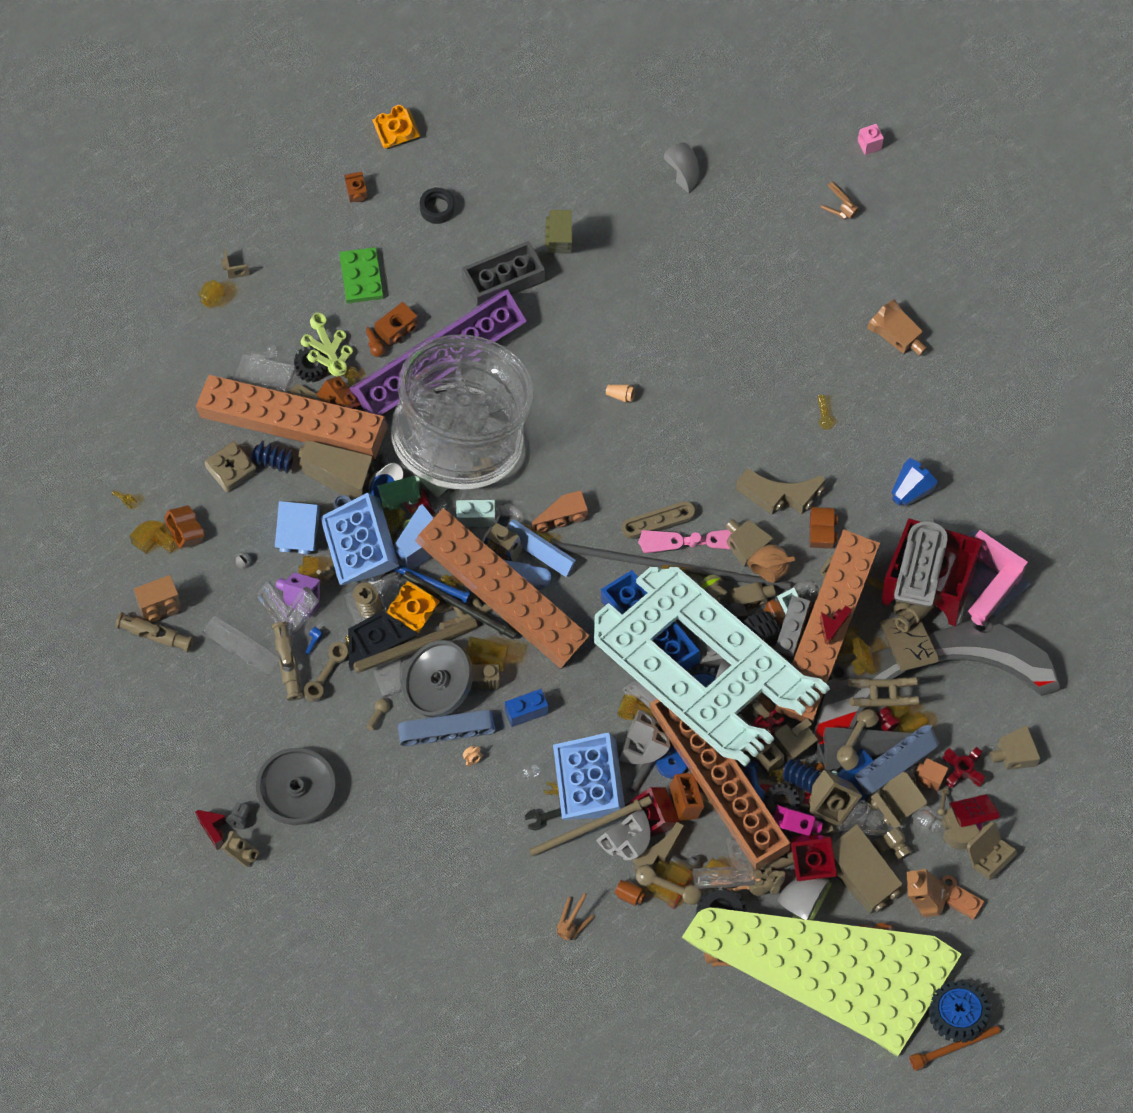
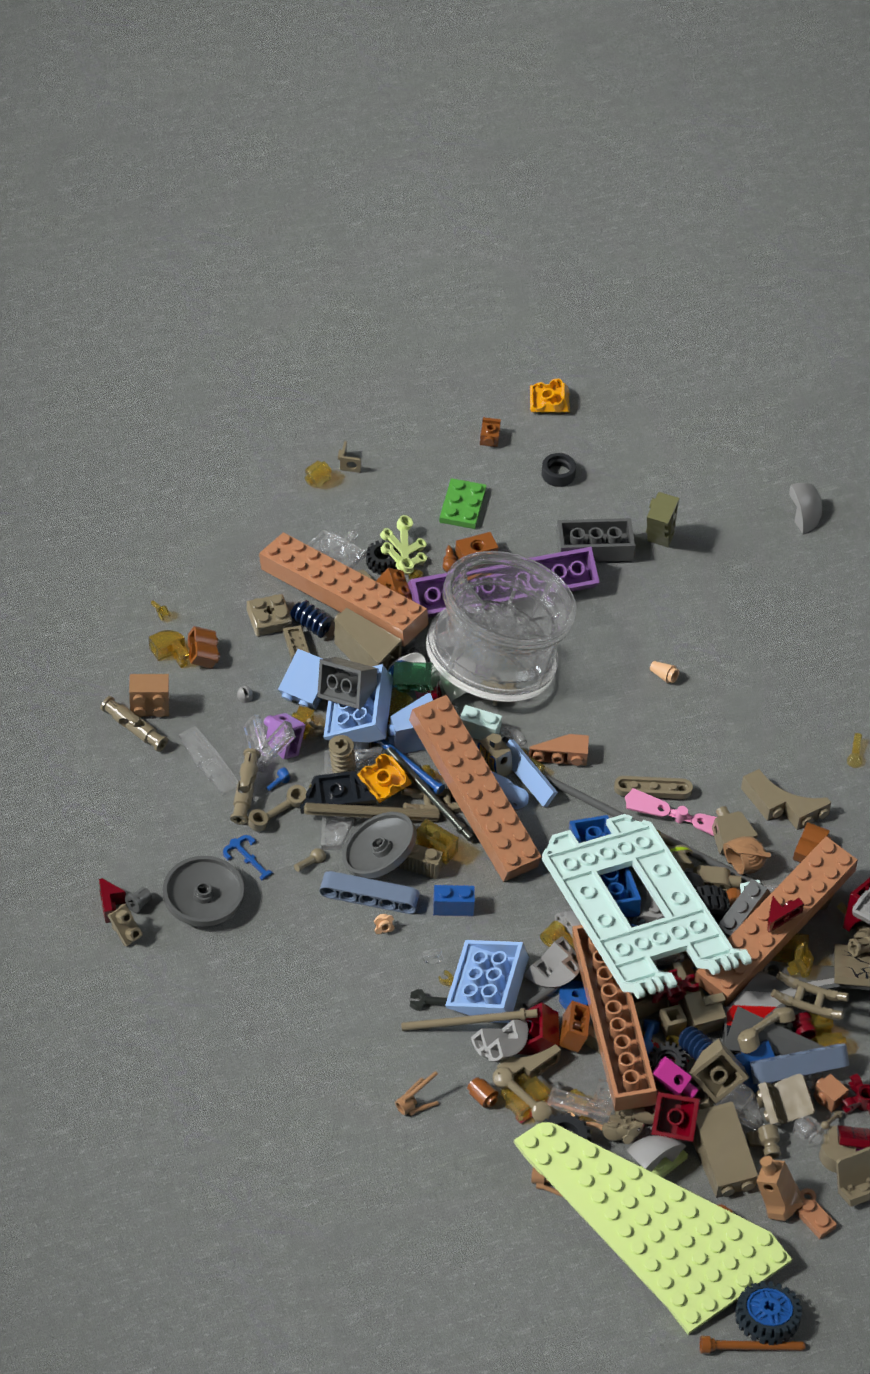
camera: 20 degrees right, 15 degrees down
(268, 487) = (295, 640): none -> dark tan plate
(301, 722) = (235, 844): none -> blue piece
(340, 522) = (346, 681): none -> dark grey slope

